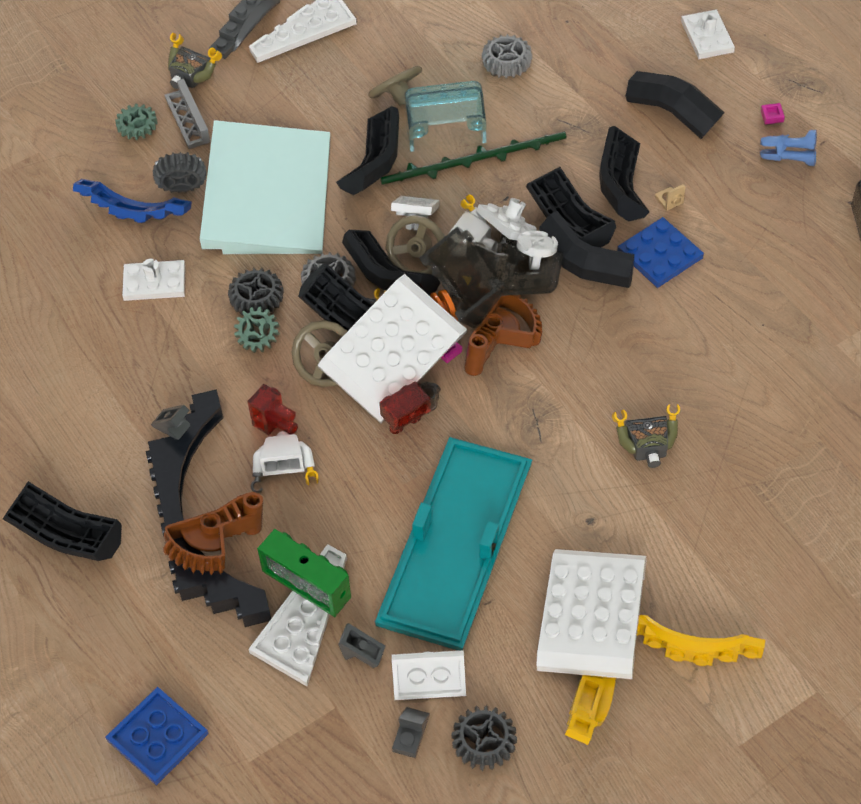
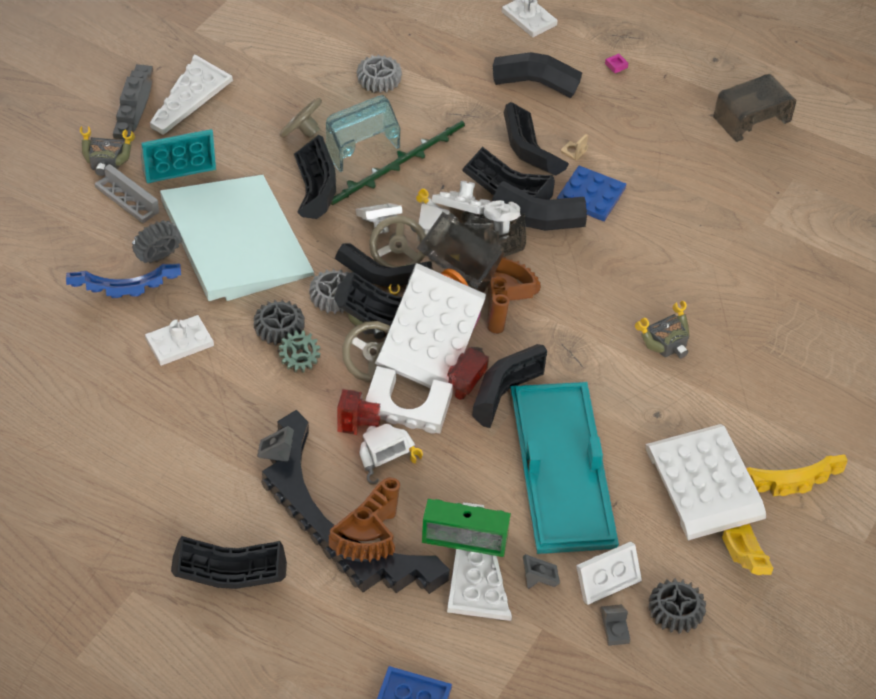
camera: 30 degrees left, 5 degrees down
(134, 121) = (84, 212): sand green gear -> none
(250, 89) = (178, 156): none -> teal slope
(346, 440) = (427, 417): none -> white arch
(436, 427) = (502, 375): none -> black piece
(783, 141) = (640, 82): medium blue piece -> none

